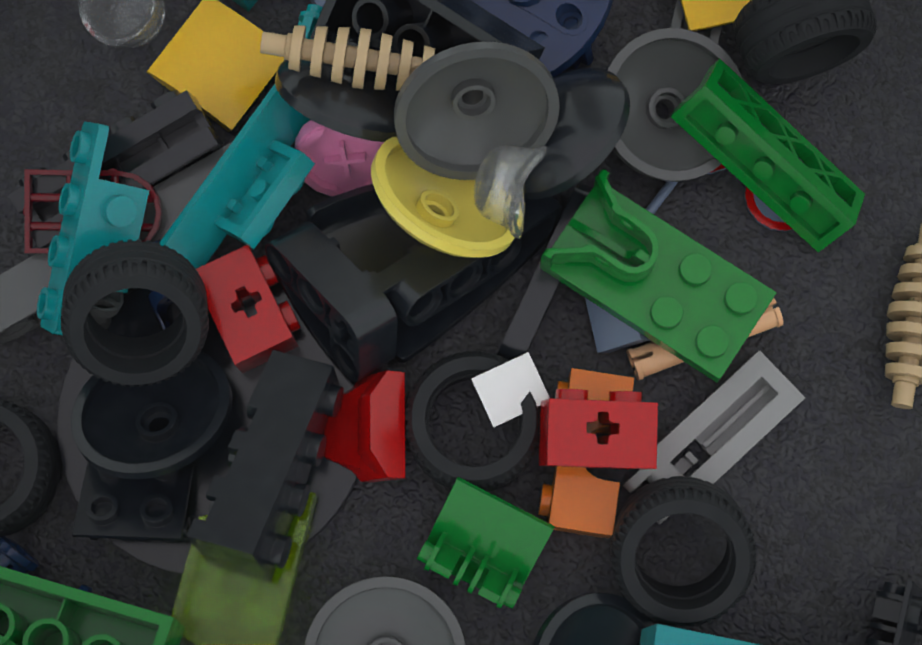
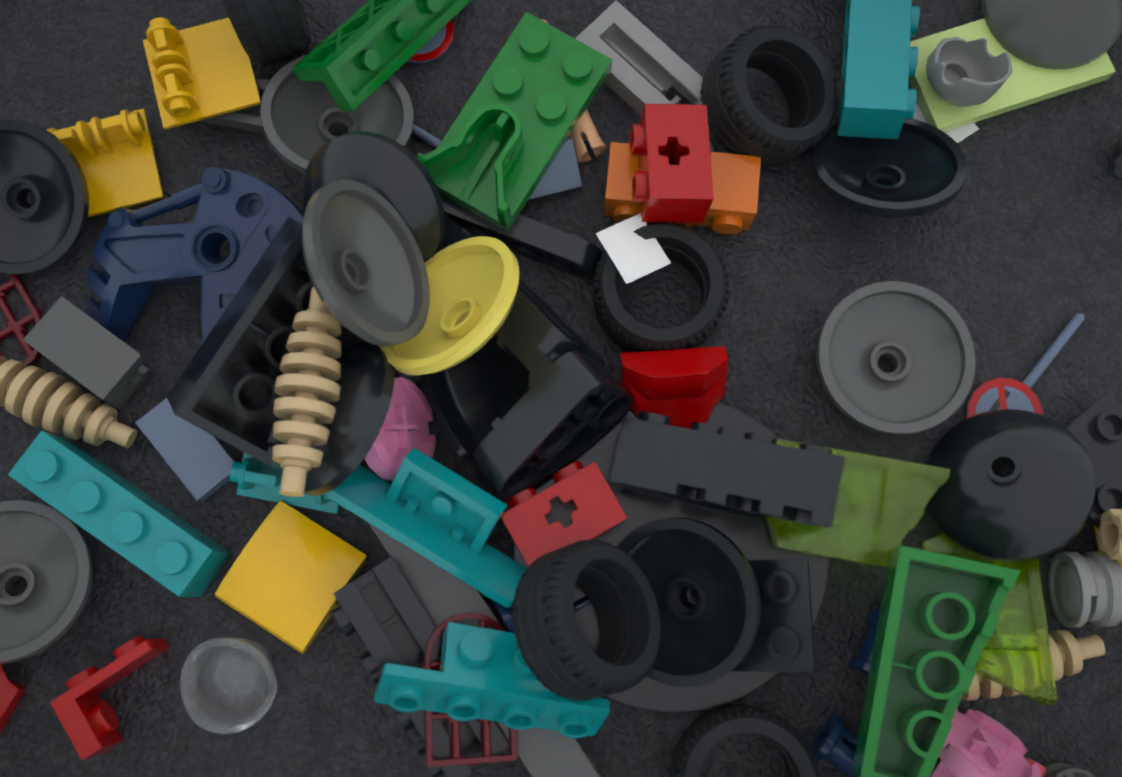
camera: 95 degrees left, 0 degrees up
(485, 543) = (778, 275): green hinge -> none
(501, 183) = (439, 236): clear helmet -> none

